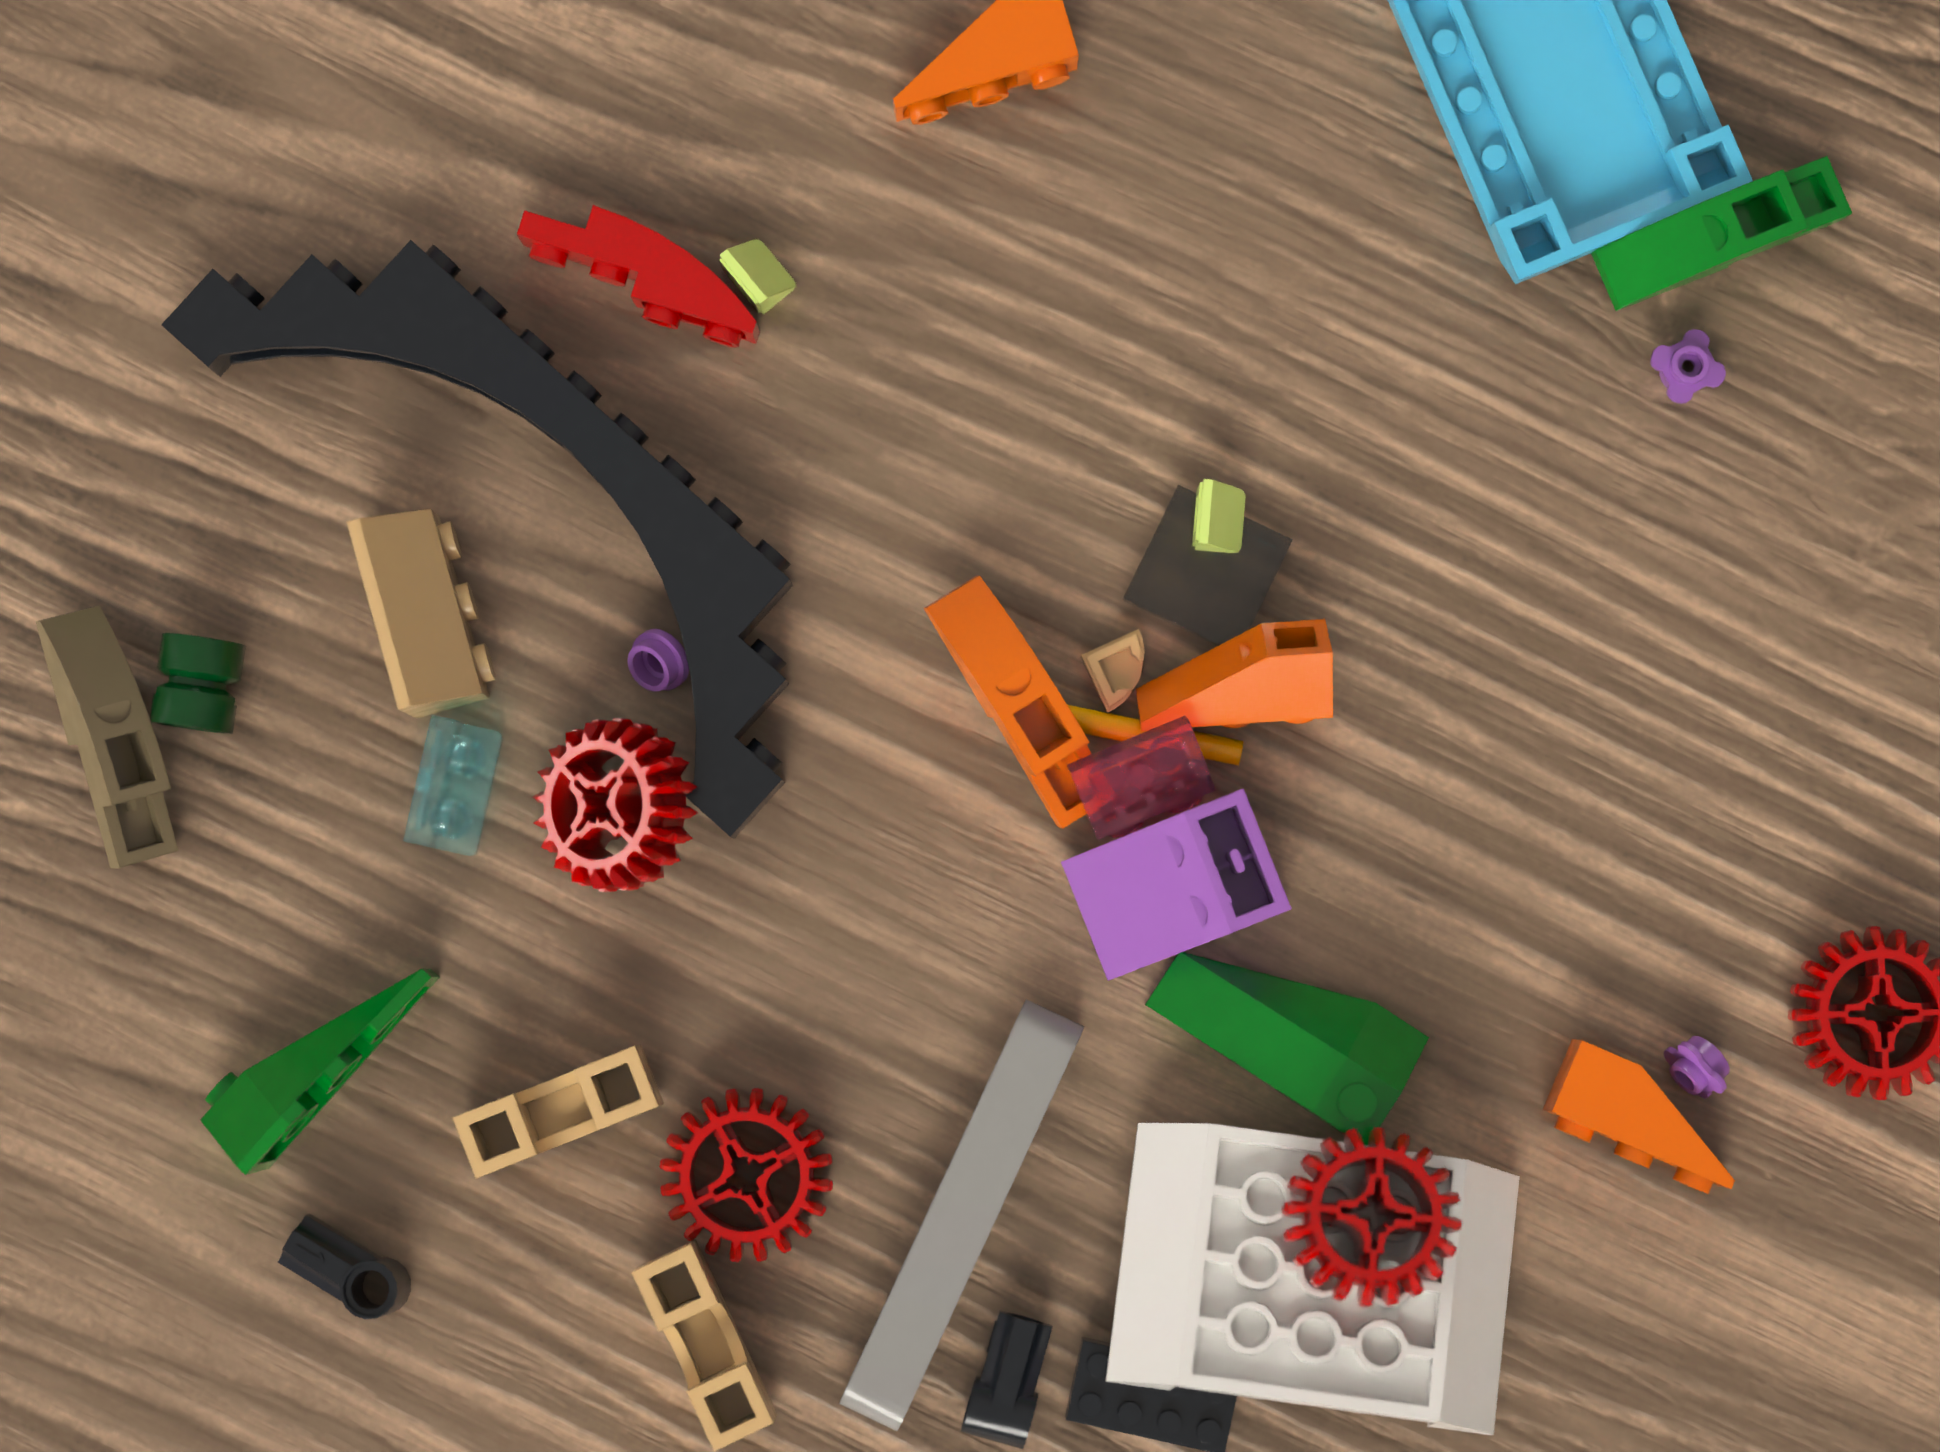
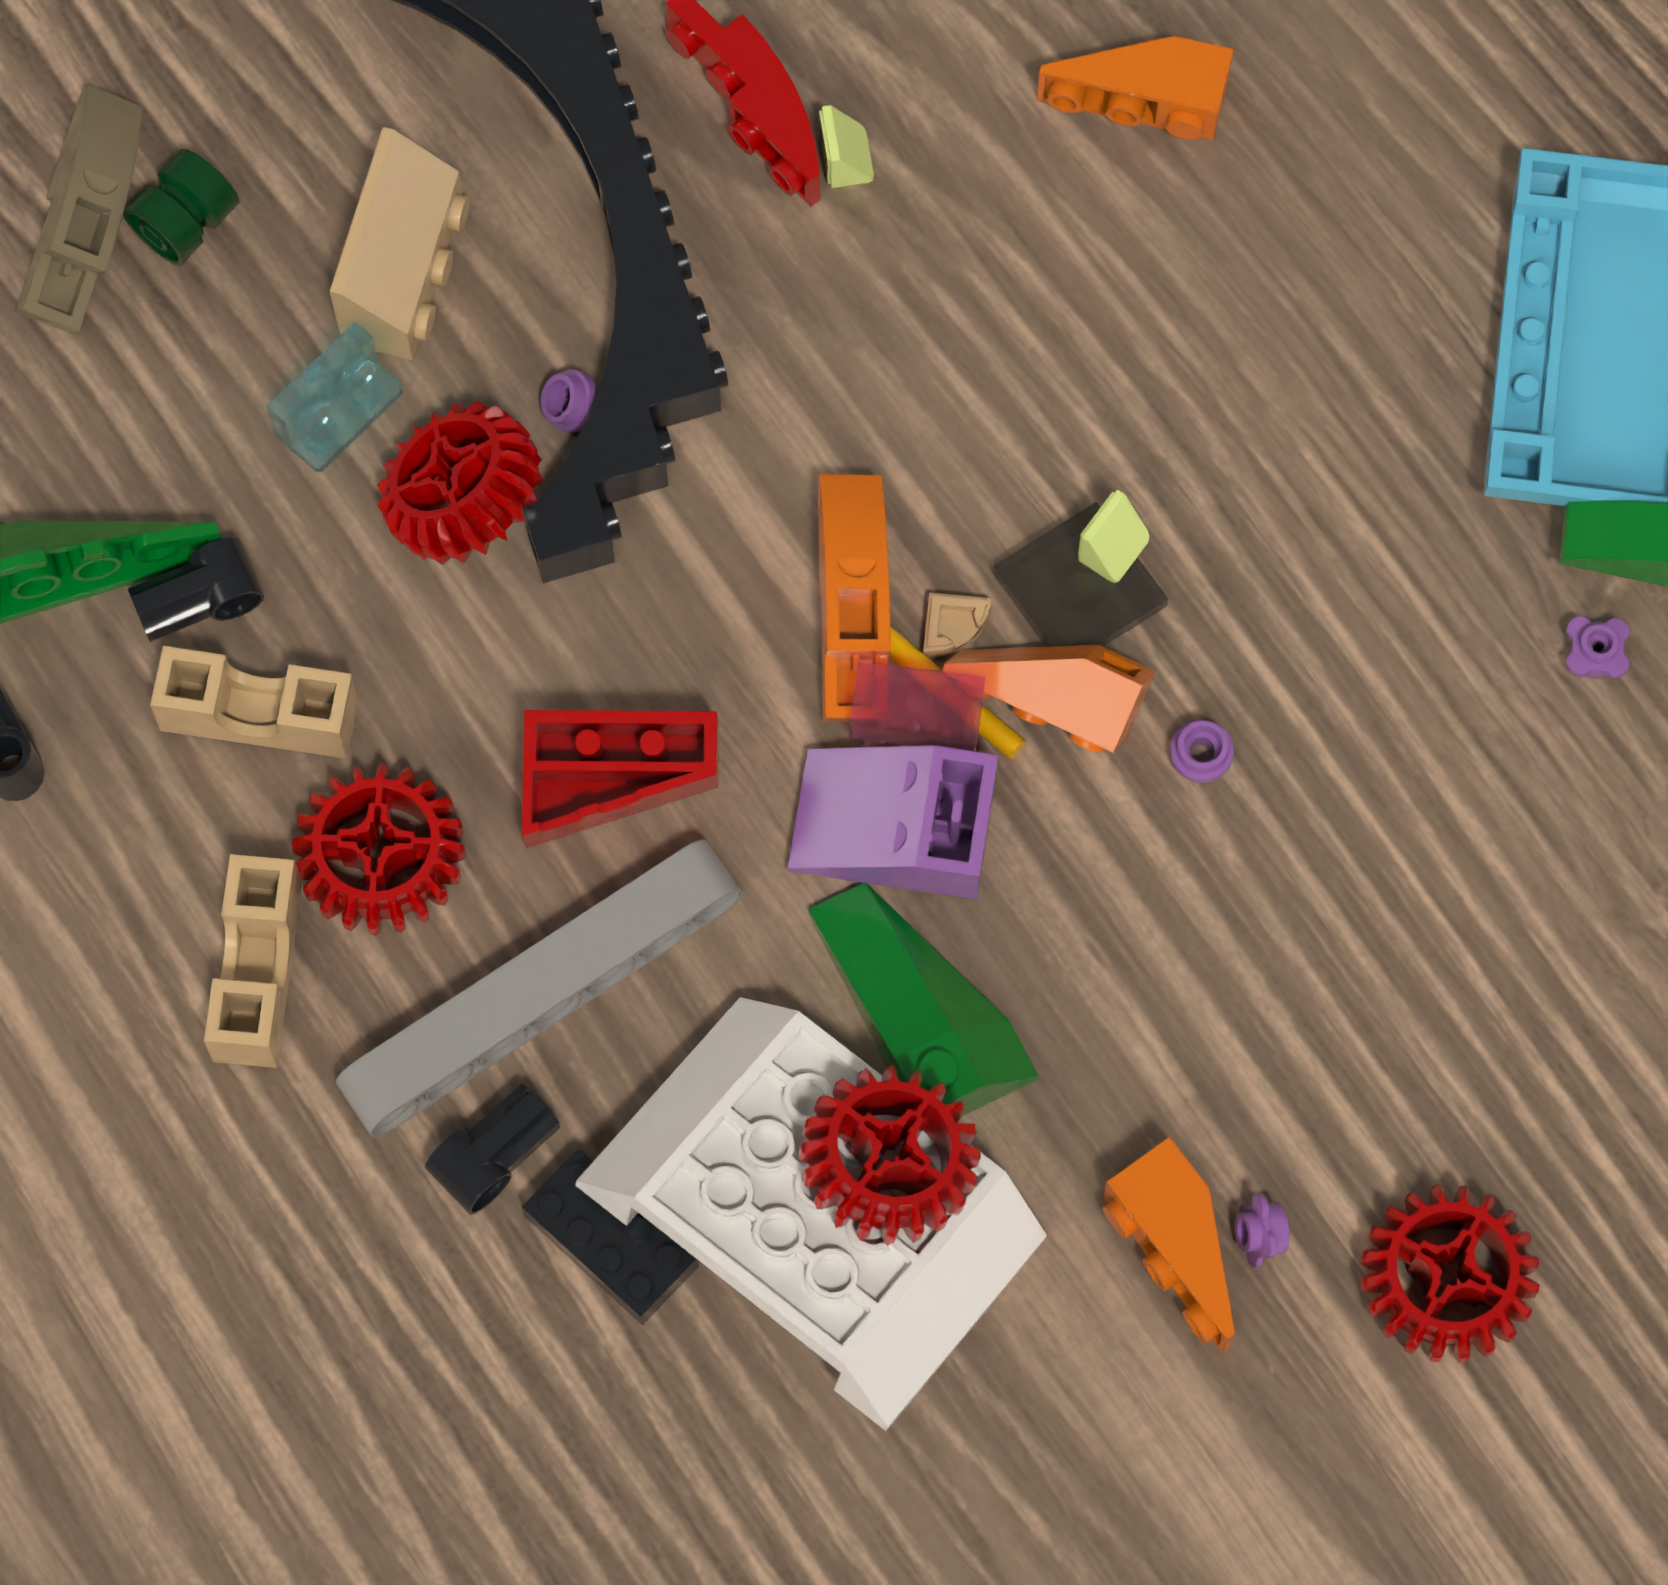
camera: 30 degrees right, 15 degrees down
(448, 1019) = (212, 584): none -> black piece
(905, 984) = (611, 765): none -> red wedge
(1420, 658) = (1207, 734): none -> medium lavender plate

